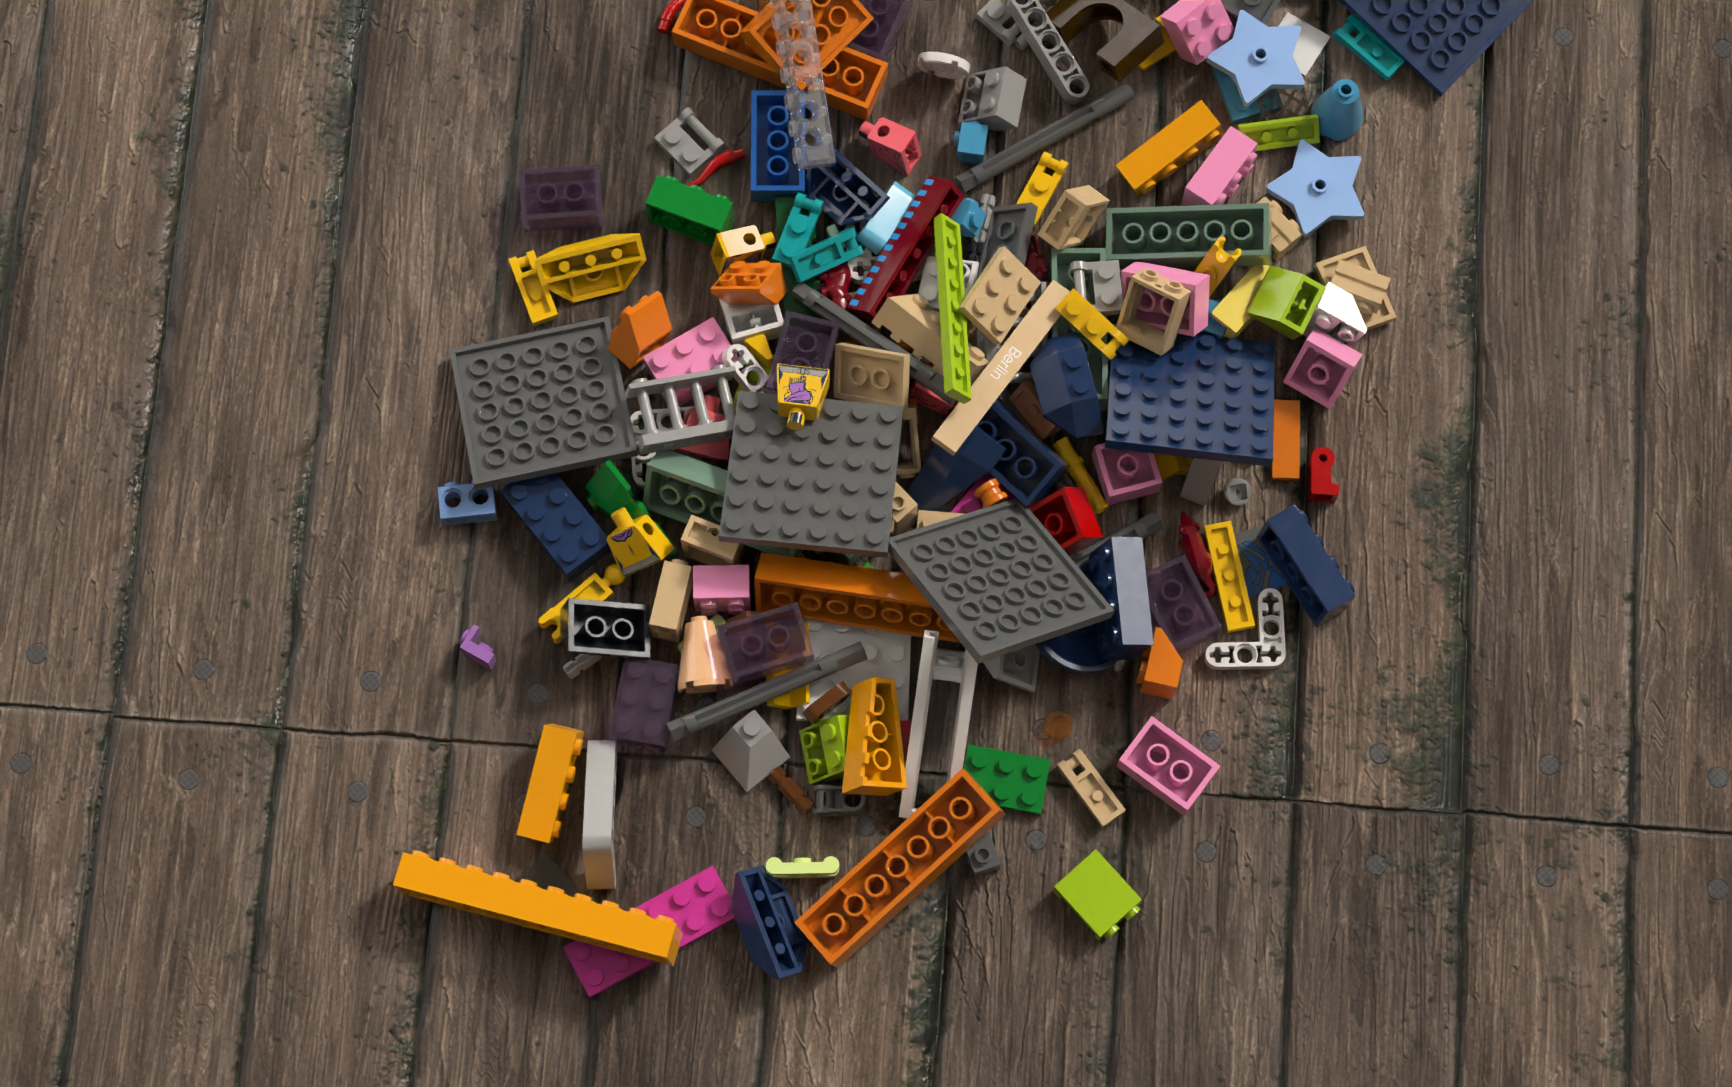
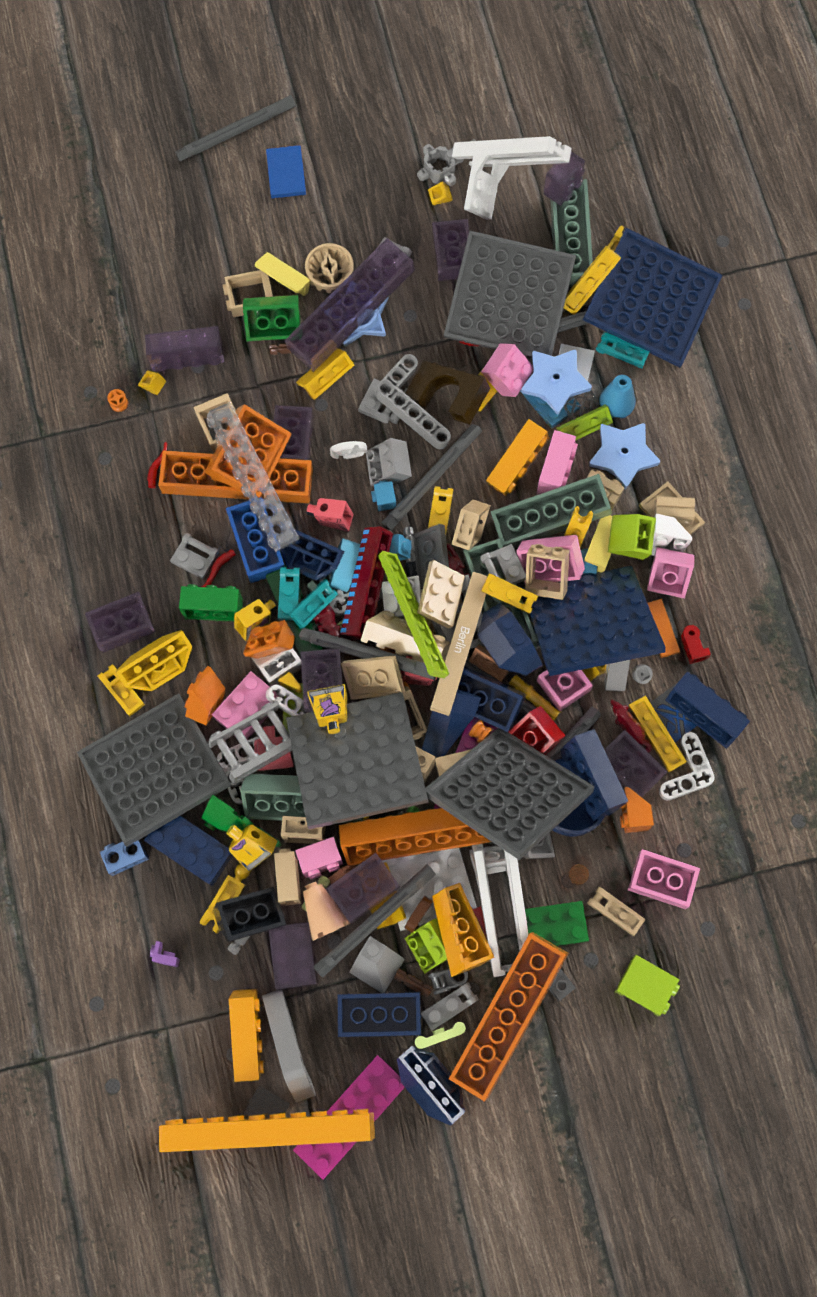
camera: 15 degrees left, 0 degrees up
(732, 814) = (379, 1015): none -> dark blue brick
(827, 836) = (449, 1007): none -> light grey plate

